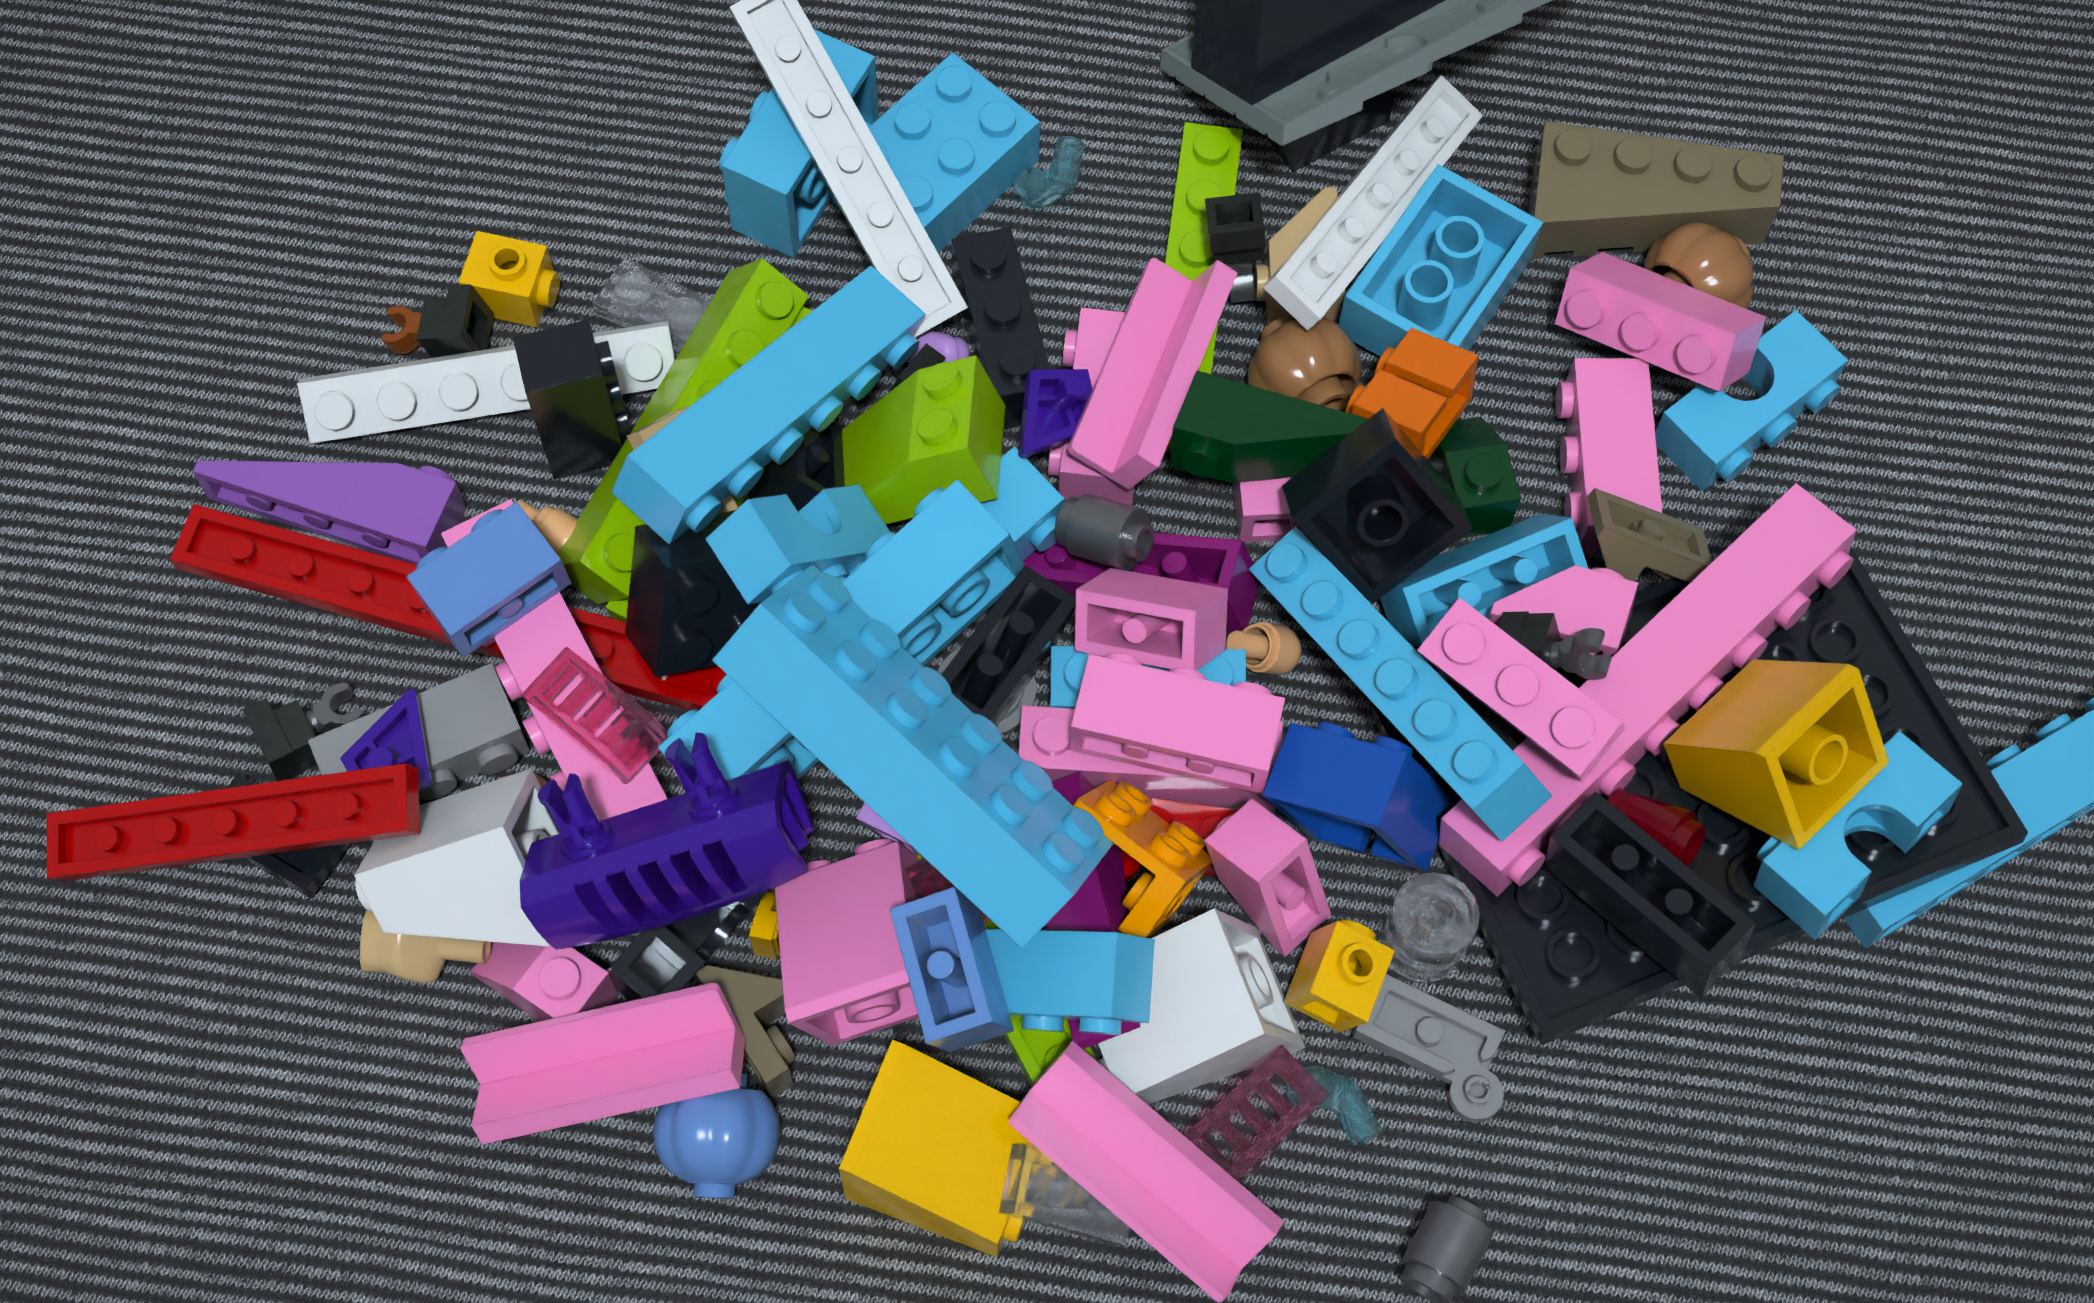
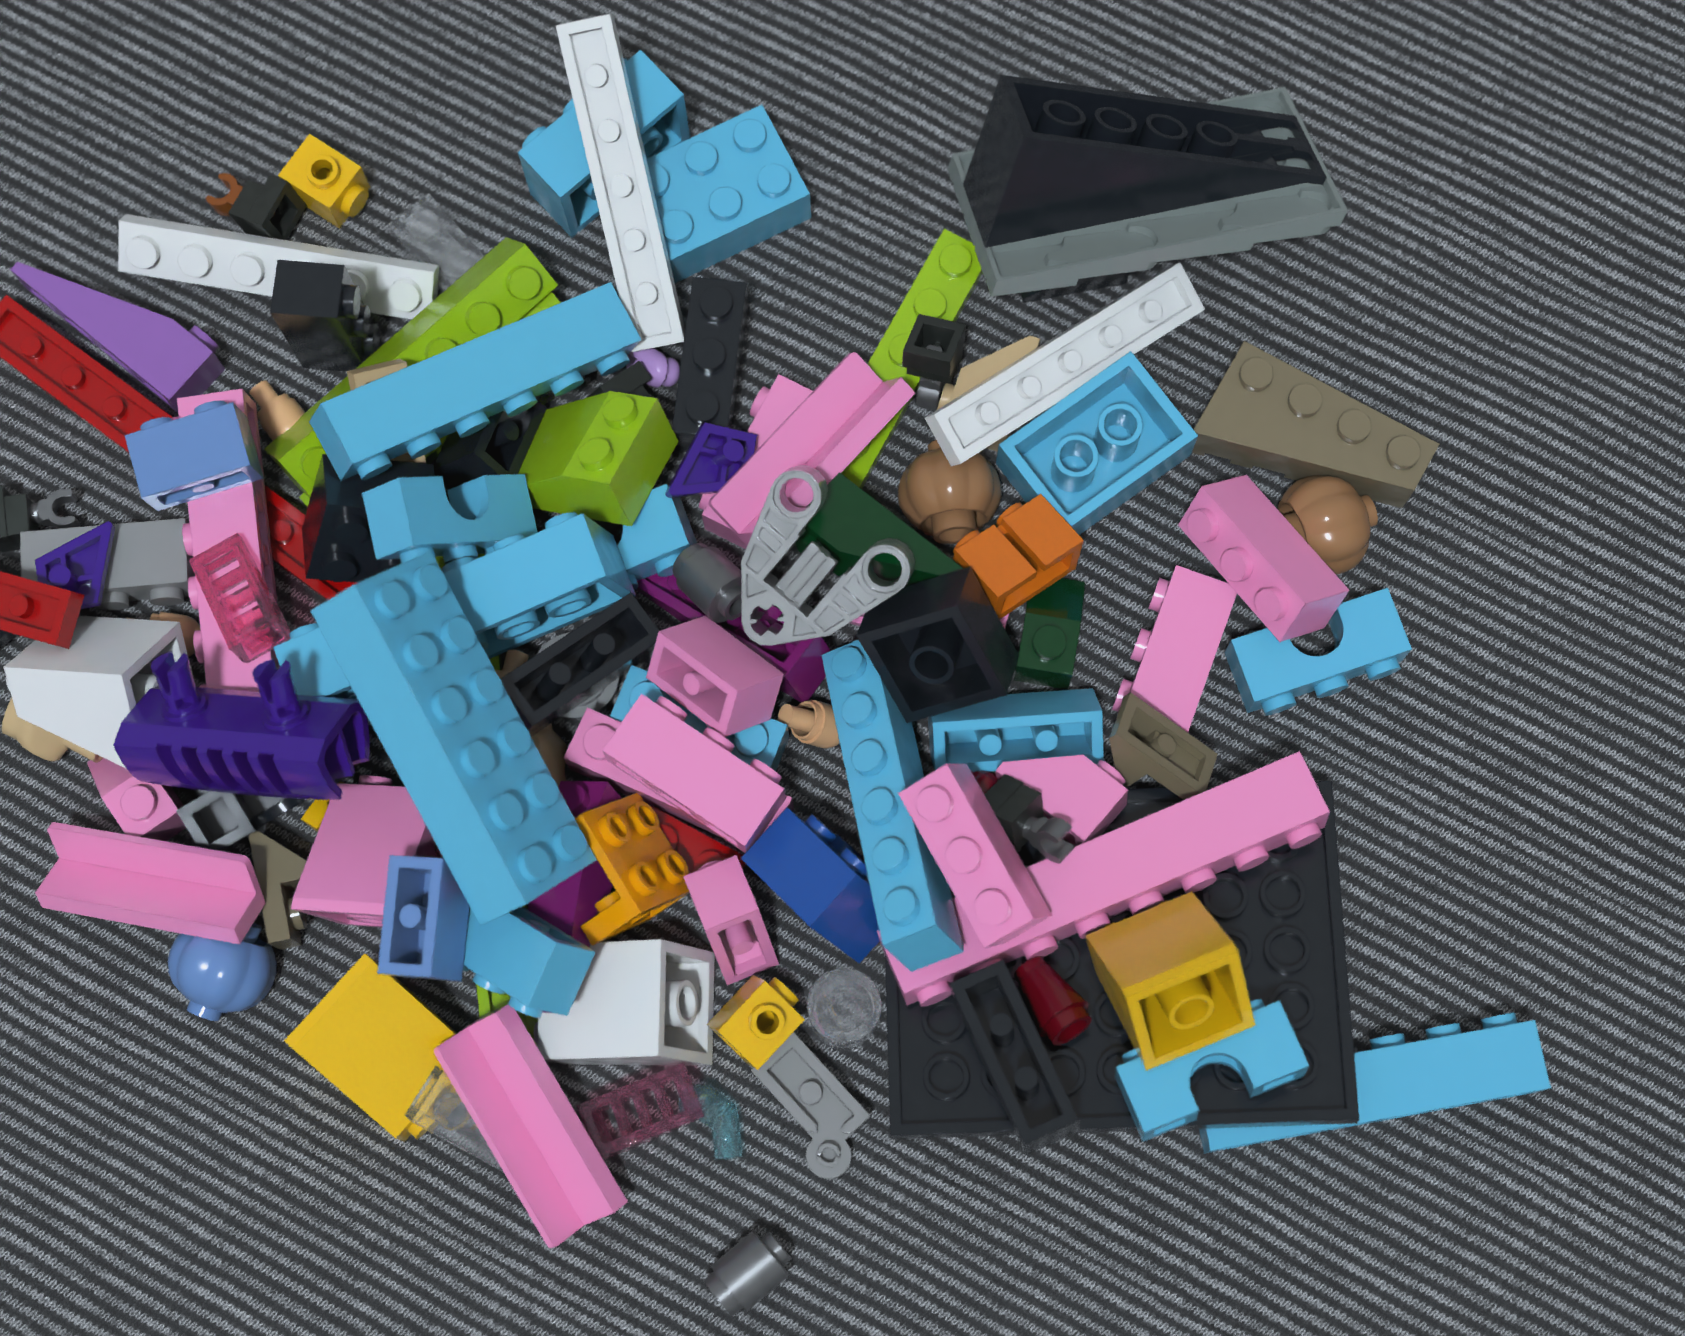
camera: 25 degrees right, 10 degrees up
(1060, 180) = (815, 245): clear light blue arm -> none
(1264, 488) = (773, 537): none -> light grey connector

